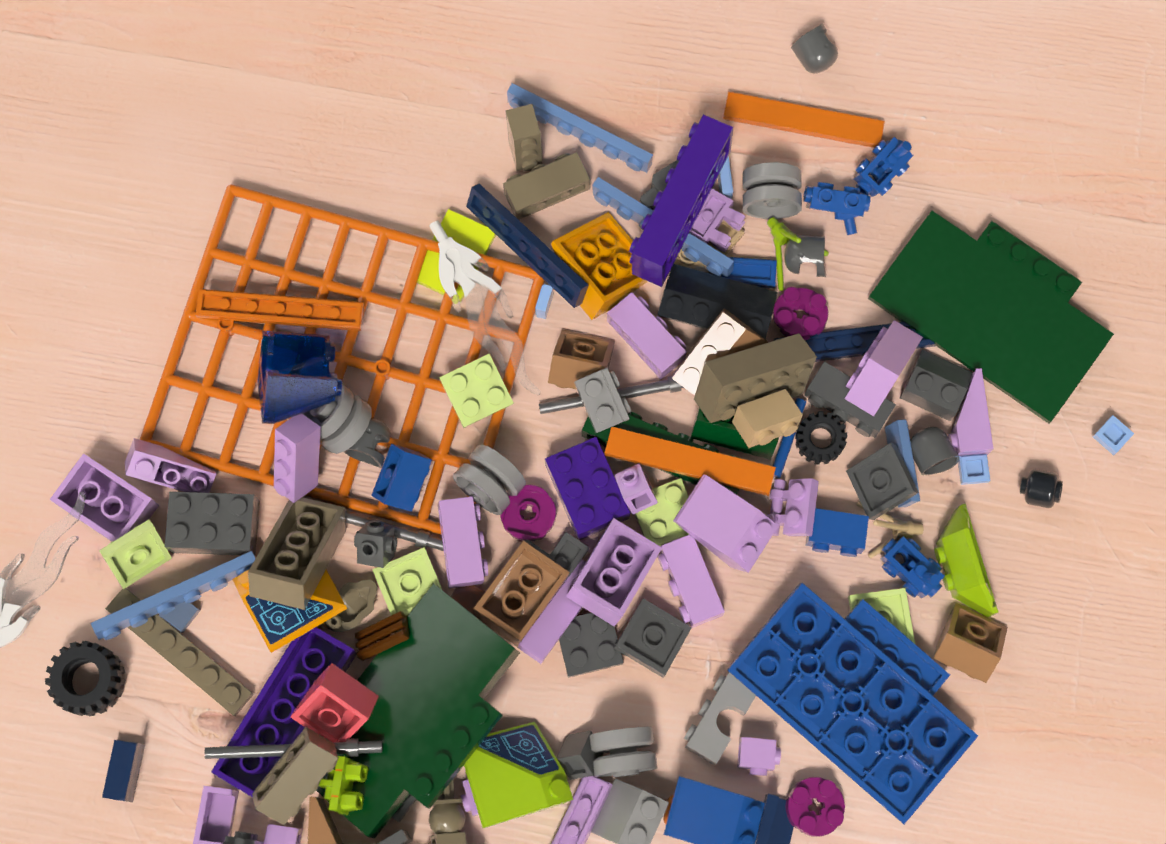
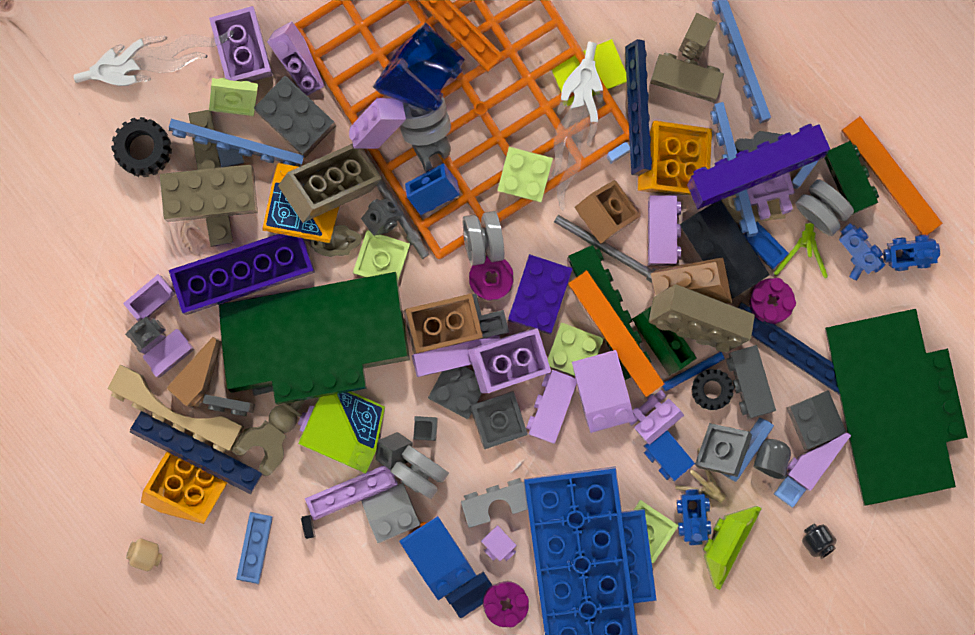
camera: 40 degrees right, 10 degrees up
(123, 771) = (119, 222): dark blue panel -> none
(188, 665) = (208, 193): none -> dark tan brick
(295, 776) = (214, 317): dark tan brick -> none
(335, 705) = (273, 296): coral slope -> none
(340, 786) = (236, 345): lime hips -> none
(351, 748) = (262, 328): dark grey bar -> none
(381, 631) = (340, 273): reddish brown tile -> none
(462, 542) = (434, 261): lavender brick -> none
(468, 596) = (410, 296): reddish brown tile -> none
(591, 706) = (425, 428): none -> dark grey panel
(602, 399) = (595, 249): light grey bracket -> none
(635, 488) = (568, 321): lavender brick -> none
(760, 144) = (851, 176): none -> dark green brick
(767, 418) = (685, 350): tan brick -> none
(808, 250) = (812, 267): dark grey helmet -> none
(815, 50) = (939, 138): dark grey helmet -> none
(881, 367) = (786, 382): lavender brick -> none
(971, 643) = (687, 593): medium nougat slope -> none
(1113, 435) = (896, 547): light blue plate -> none

